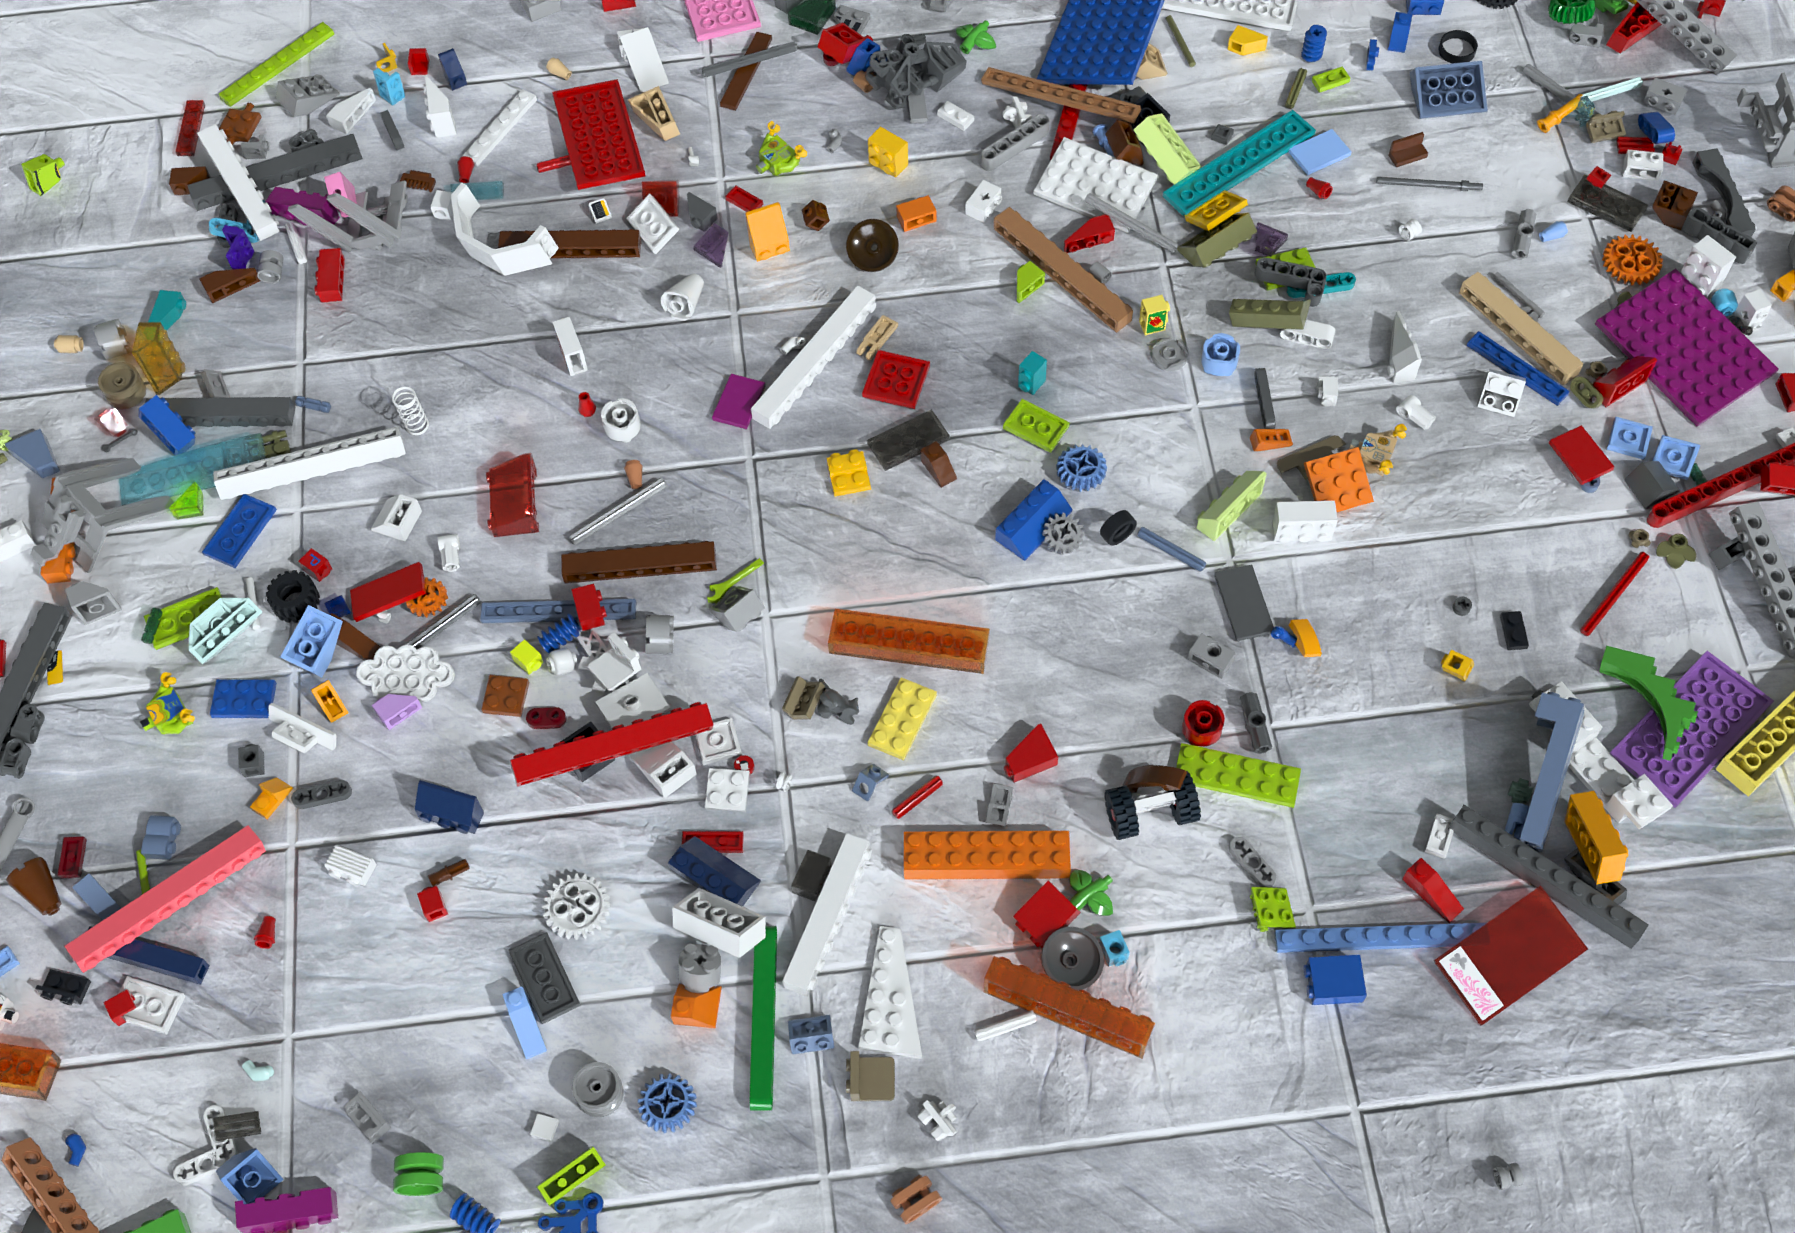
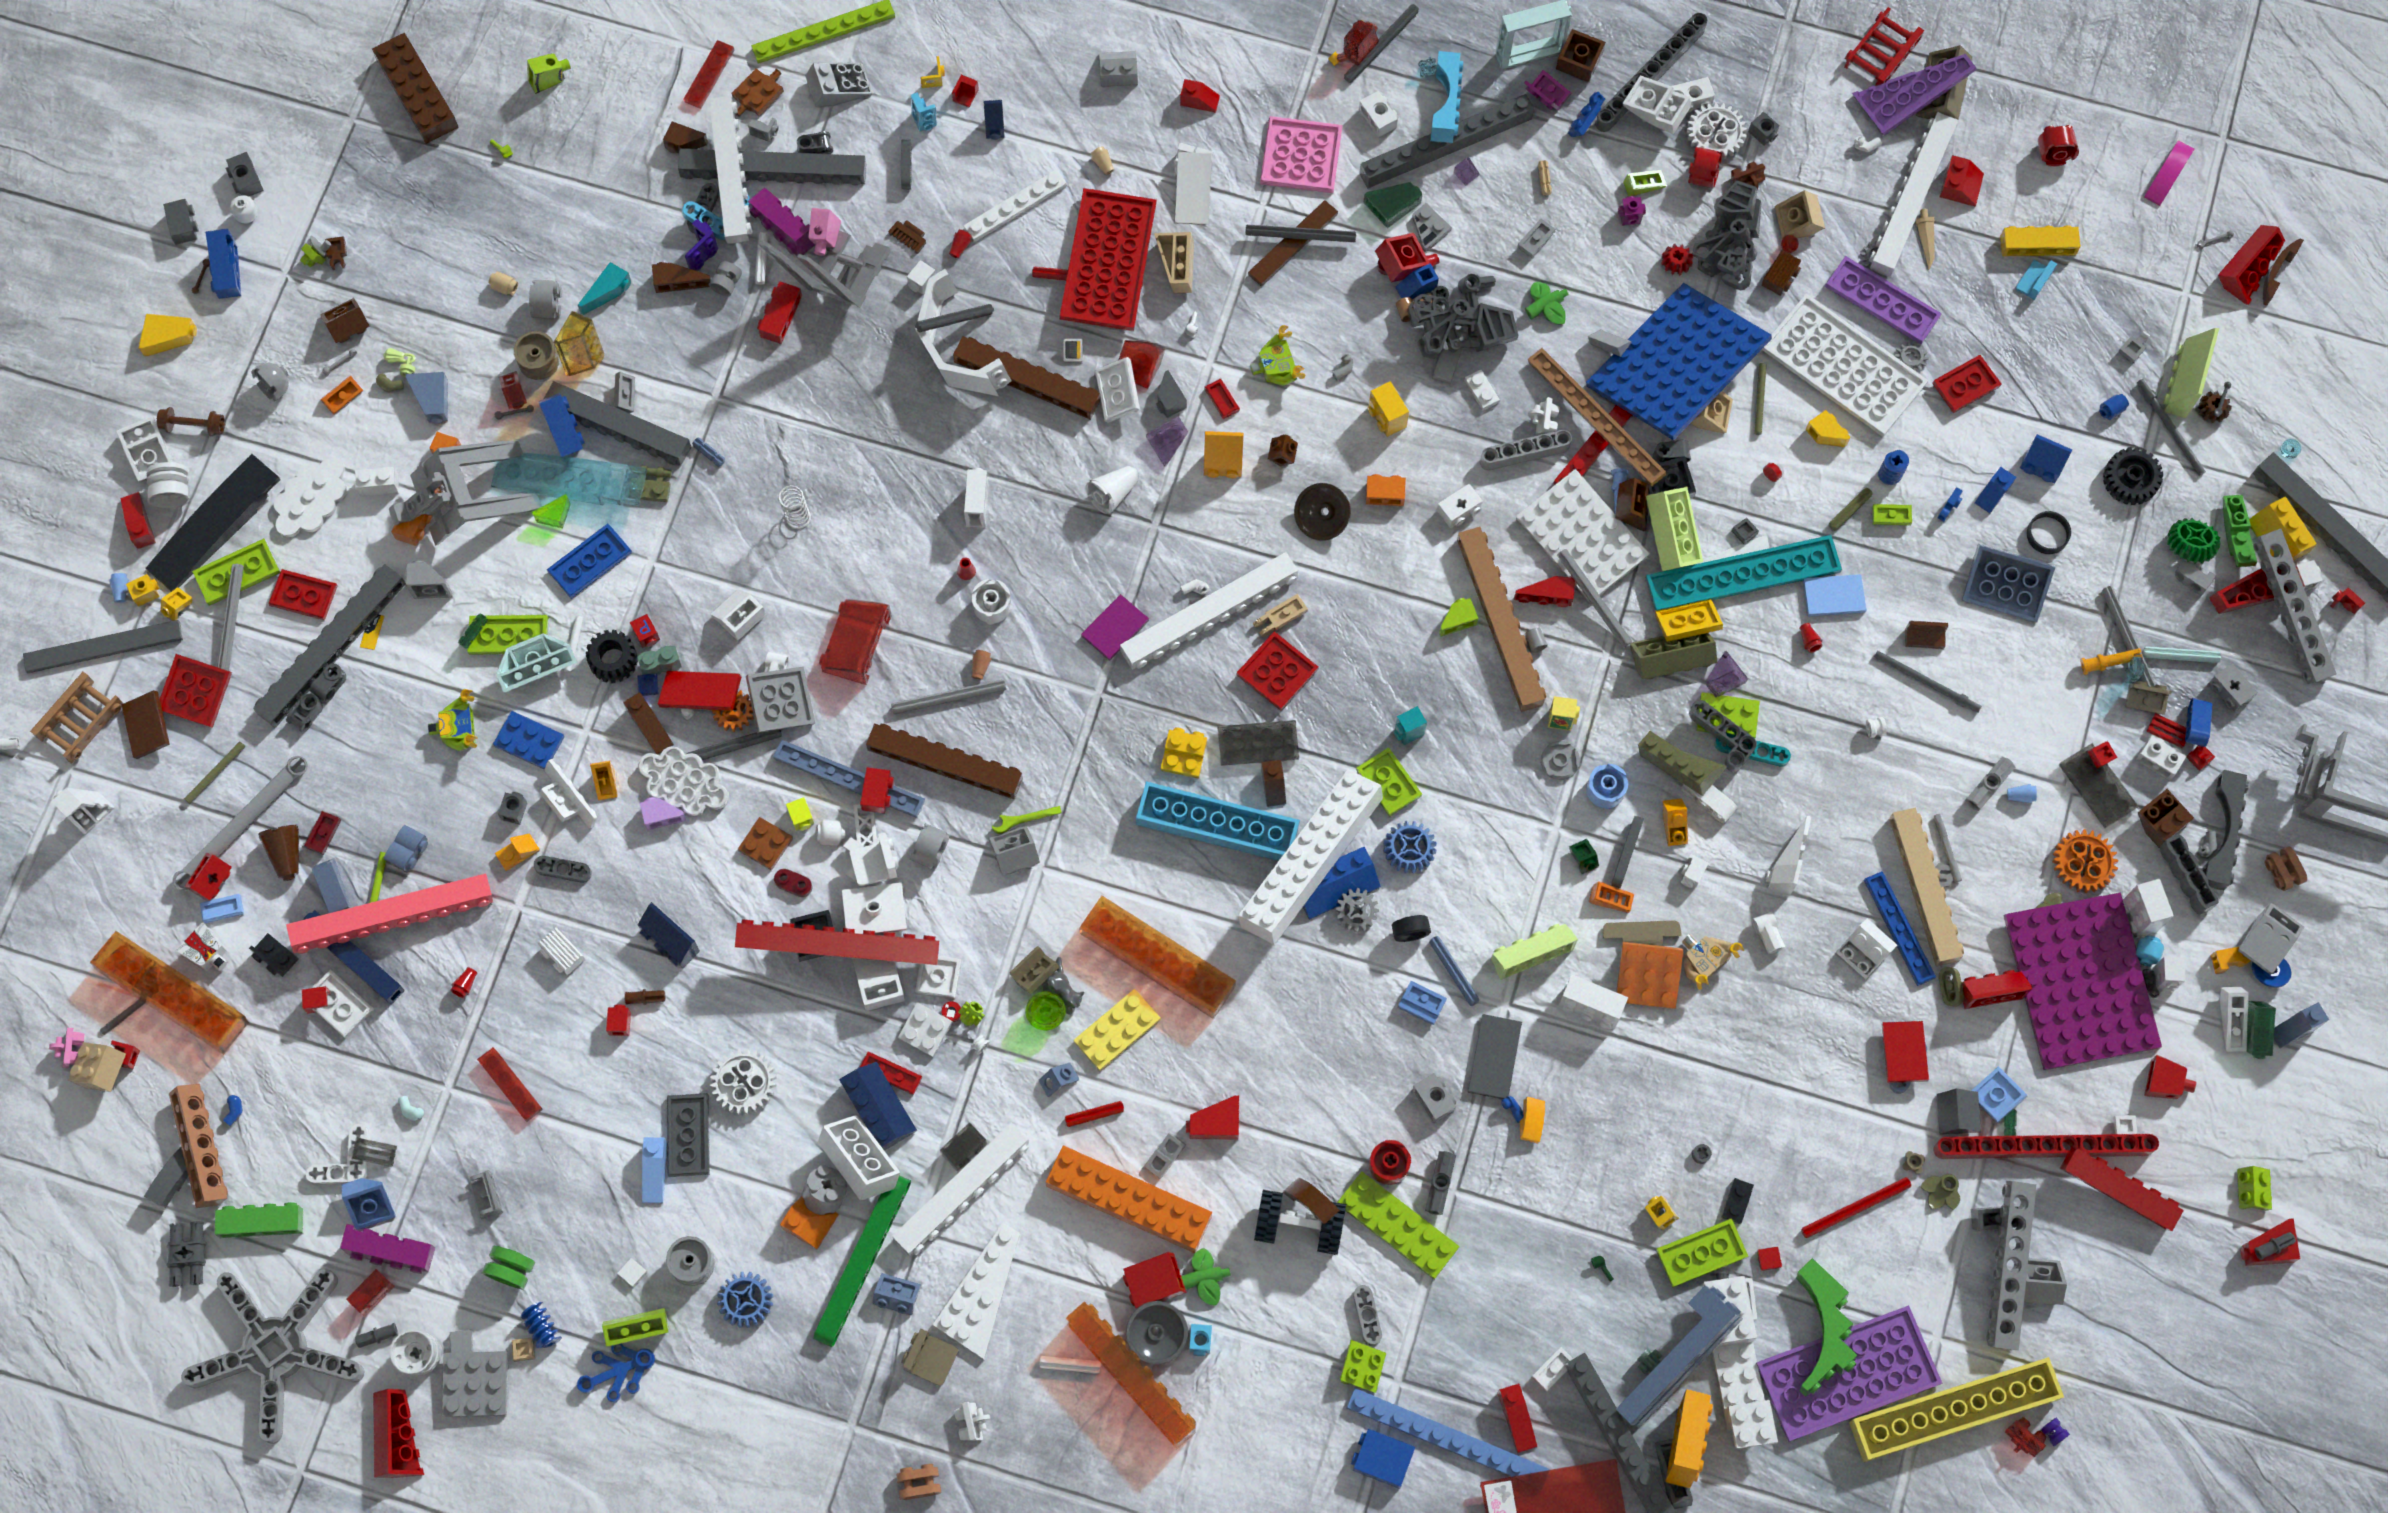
camera: 20 degrees right, 10 degrees up
(29, 246) = (505, 151): none -> lime hand
(309, 463) = (680, 520): white brick -> none
(313, 641) = (611, 715): light blue slope -> none
(340, 582) = (659, 661): none -> sand green brick
(349, 112) = (873, 123): white slope -> none
(349, 1005) = (510, 1084): none -> clear red plate
(438, 110) = (960, 167): white slope -> none
(466, 569) = (780, 699): none -> light grey plate
(484, 190) = (963, 273): clear light blue slope -> none
(485, 219) = (953, 318): none -> dark grey axle
(559, 634) = (838, 807): blue piece -> none
(763, 758) = (971, 1013): none -> lime gear
(831, 726) = (1045, 1011): none -> clear neon green cone
(906, 512) = (1216, 821): none -> medium azure brick
(1003, 503) = (1310, 857): none -> white brick
(1040, 44) = (1609, 342): none -> light grey slope
(1158, 584) = (1422, 1002): none -> medium blue plate
(1220, 85) = (1772, 472): none -> red tile
(1231, 414) = (1585, 856): none -> dark green bracket
(1291, 360) = (1675, 821): none -> light orange slope
(1428, 729) = (1599, 1261): none -> dark green hand
(1510, 684) = (1702, 1253): none -> lime plate
(1516, 819) = (1629, 1385): light blue hinge -> none
(1568, 665) = (1769, 1258): none -> red tile
(1596, 369) = (1982, 967): dark tan plate -> none
(1629, 438) = (1967, 1053): light blue tile -> none

